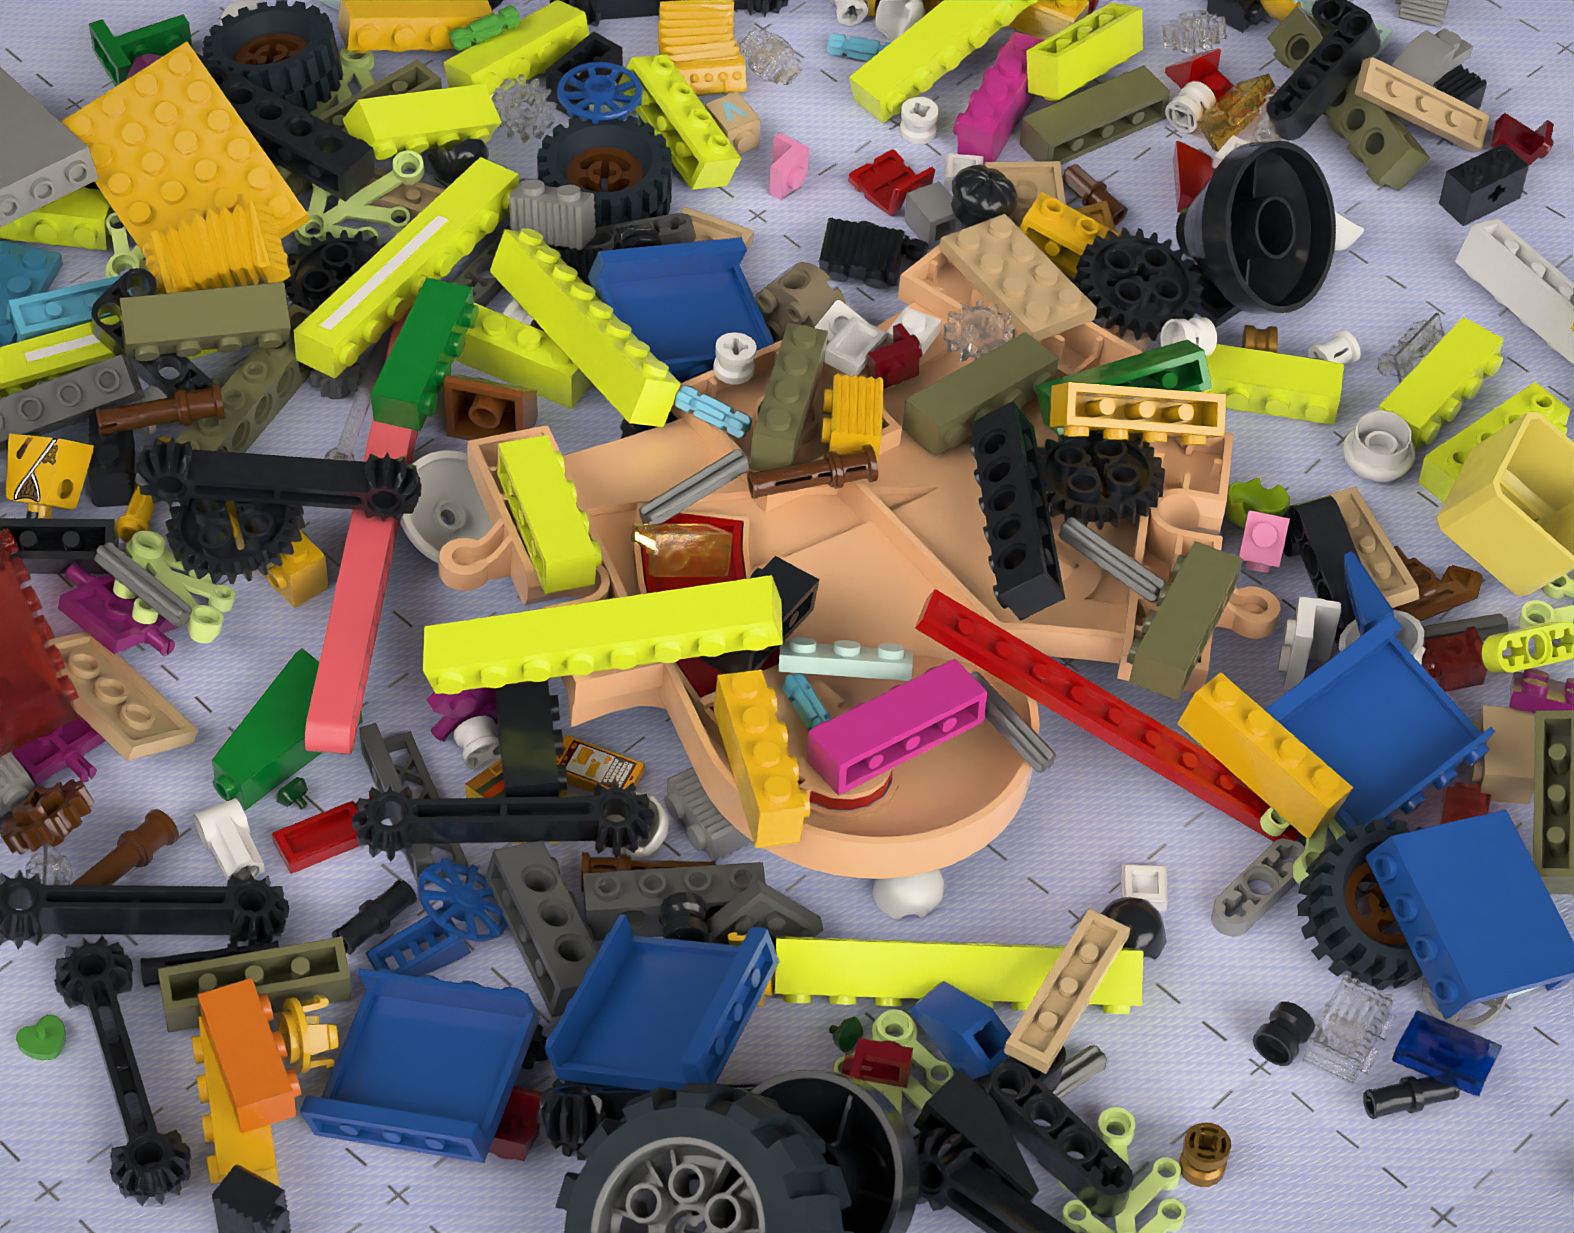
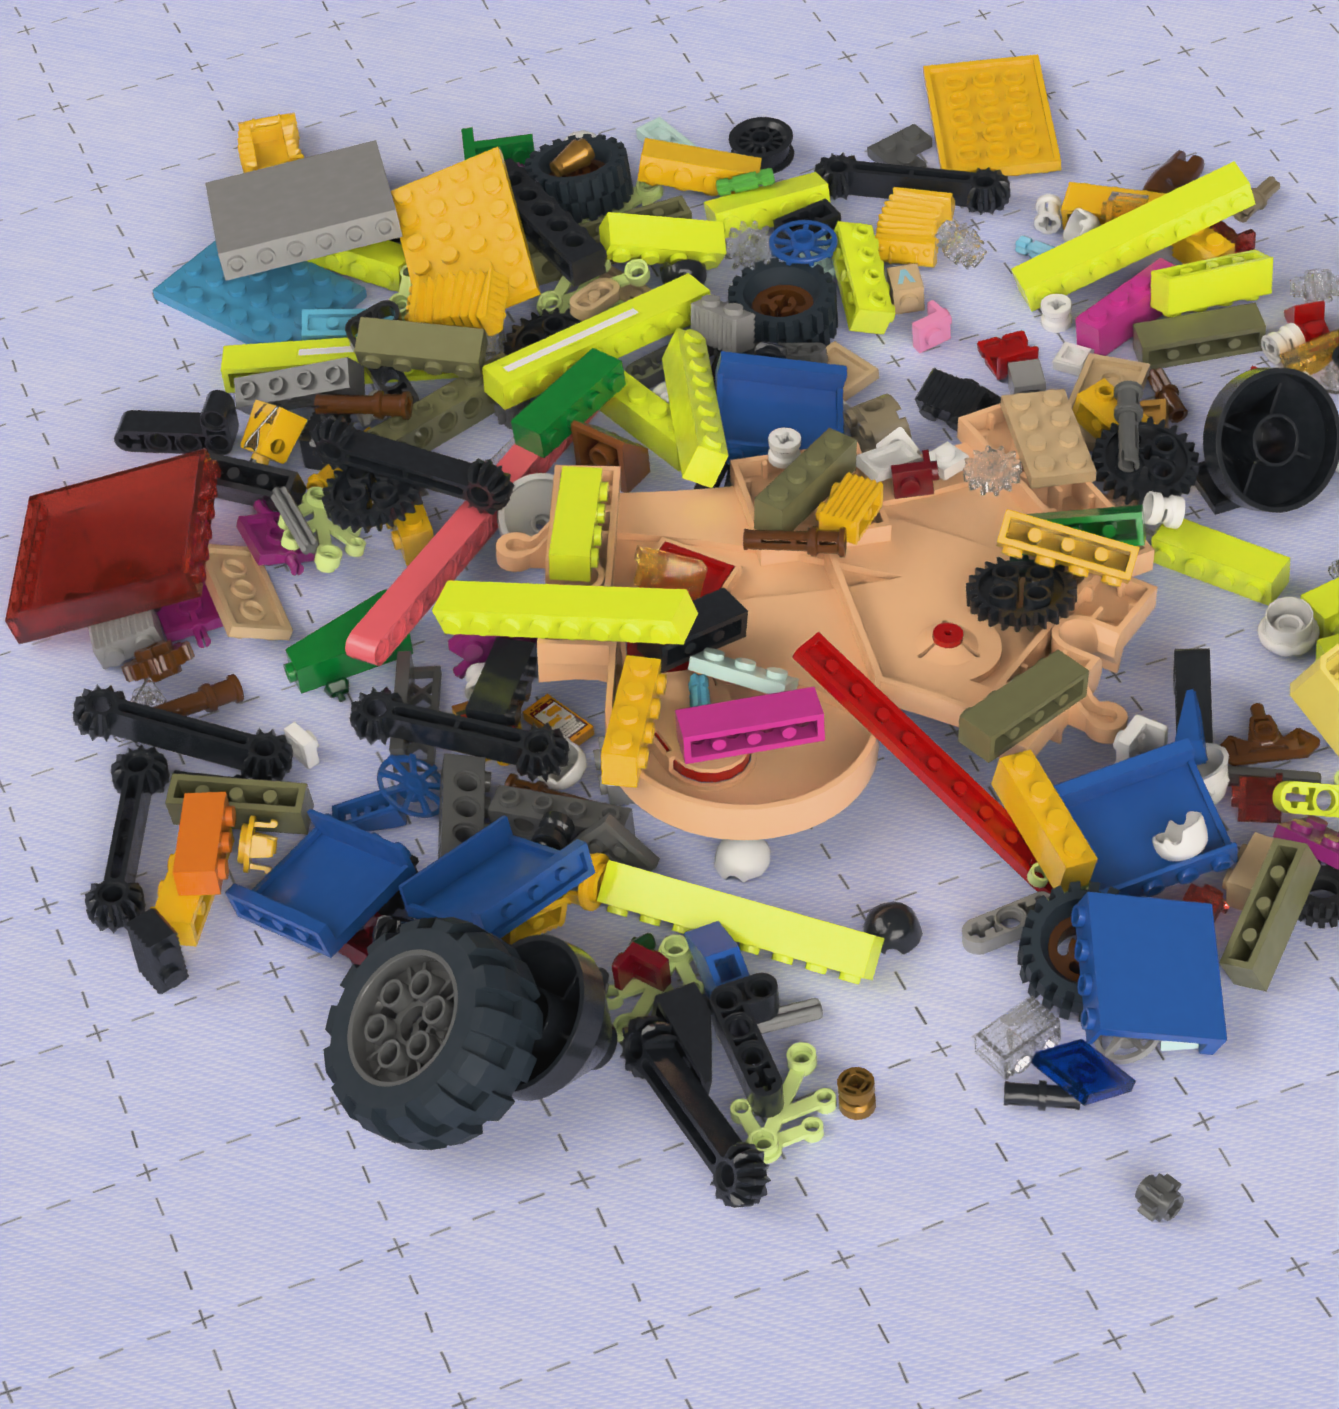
camera: 30 degrees right, 5 degrees down
(44, 1039) = (90, 808): bright green piece -> none
(228, 835) = (275, 704): white piece -> none
(262, 36) = (573, 157): none -> pearl gold cone
(294, 878) = (303, 745): none -> white plate
(317, 837) = (331, 723): red tile -> none
(374, 212) = (594, 298): none -> tan plate
(375, 915) = (347, 783): black pin -> none
(695, 488) = (703, 532): axle -> none
(713, 411) = (743, 478): medium azure axle -> none
(943, 411) = (962, 513): olive brick -> none
(982, 195) = (1062, 370): black piece -> none
(1016, 512) = (935, 600): black brick -> none
(1016, 729) = (841, 745): dark grey axle -> none
(1067, 991) = (795, 944): tan plate -> none
(1107, 232) = (1128, 415): none -> dark grey pin
(1111, 559) = (992, 648): axle -> none
(1145, 882) = (923, 900): white tile -> none
(1254, 497) = (1157, 648): lime hair -> none
(1260, 339) = (1237, 528): pearl gold wheel -> none
(1263, 541) = (1148, 674): bright pink bracket -> none
(1282, 1035) = (961, 1029): black wheel -> none
(1334, 349) = (1304, 544): white bush -> none
(1376, 549) = (1232, 699): tan plate -> none
(1432, 738) = (1182, 840): none -> white hair

